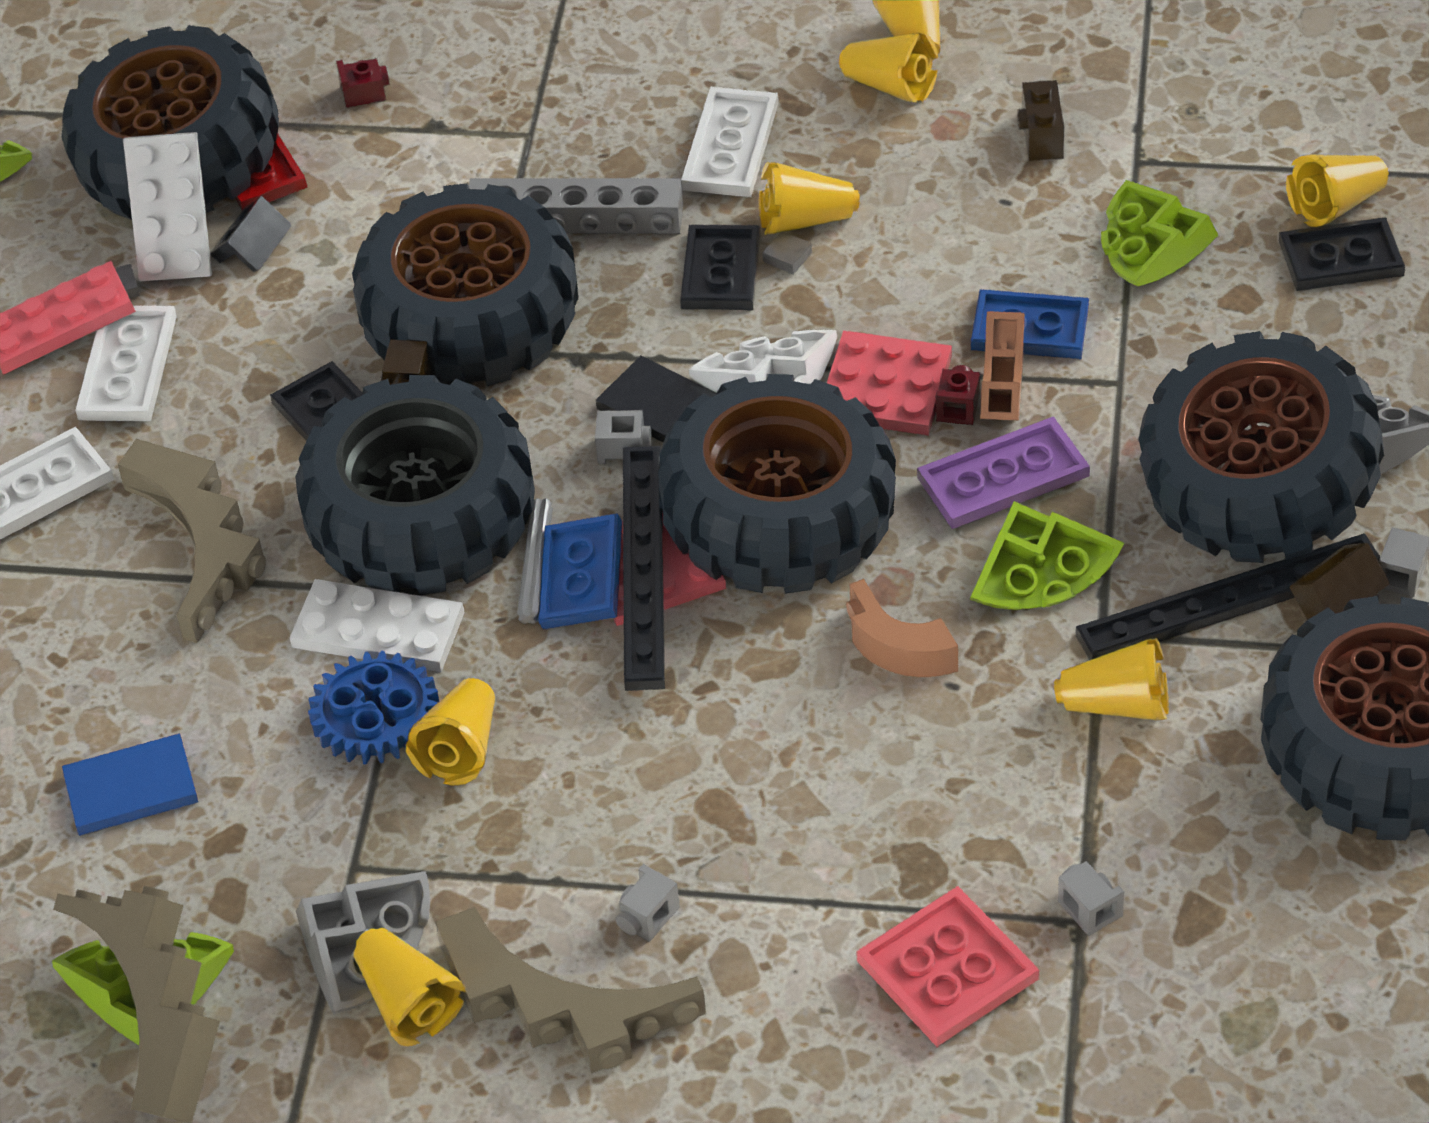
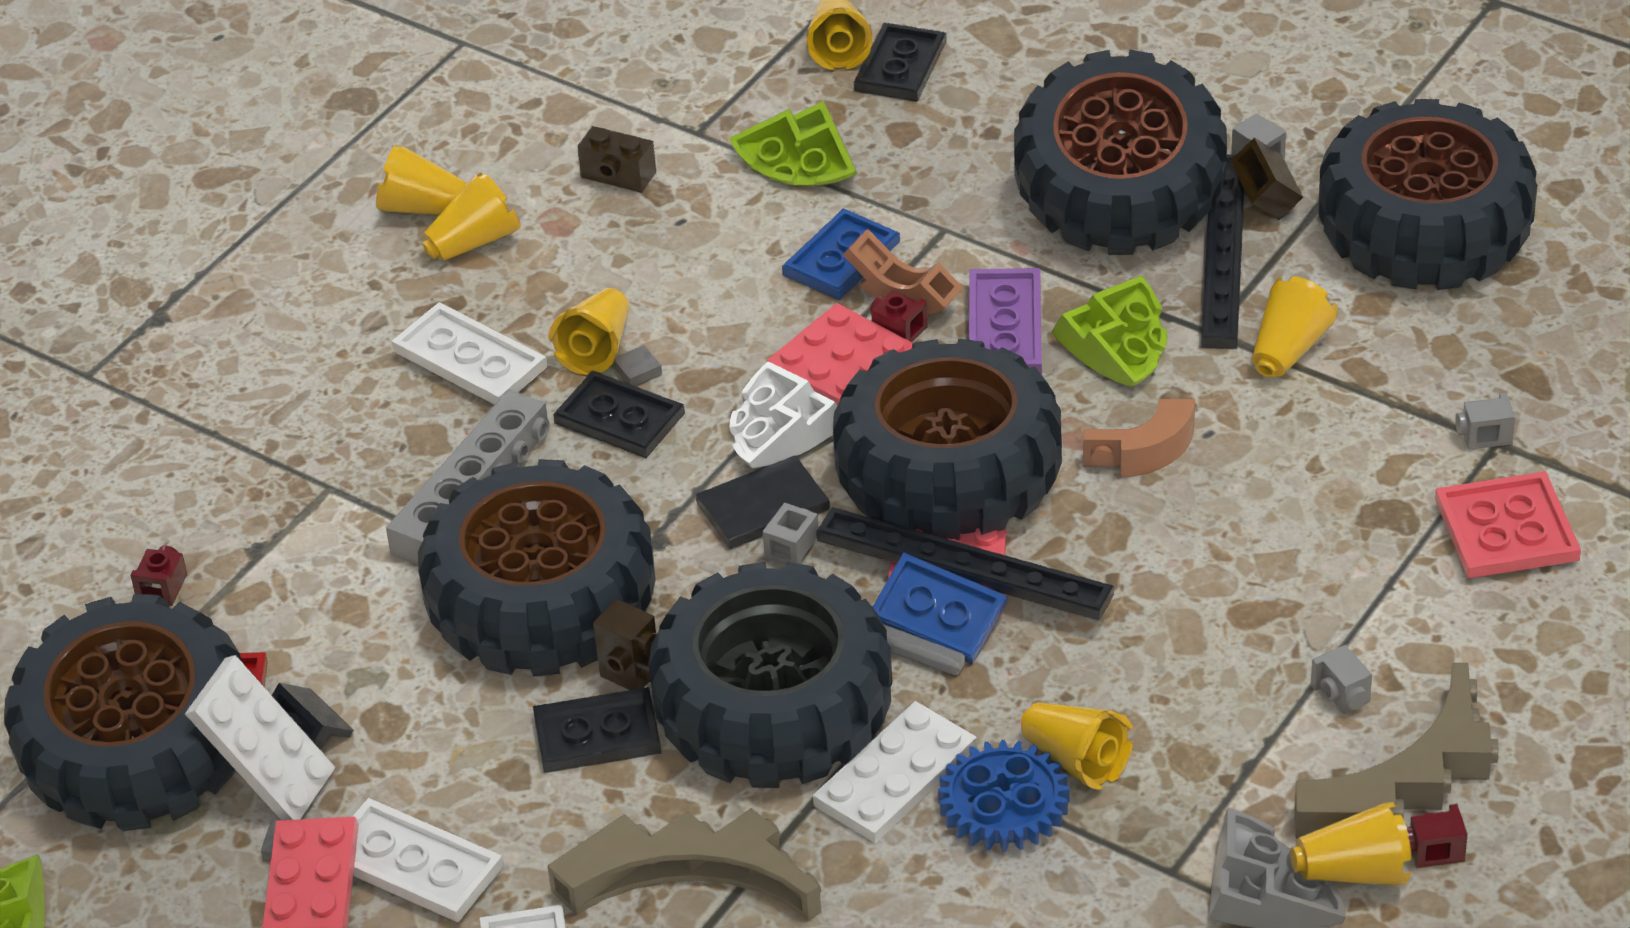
camera: 65 degrees left, 5 degrees down
(474, 1049) = (1438, 838): none -> dark red brick

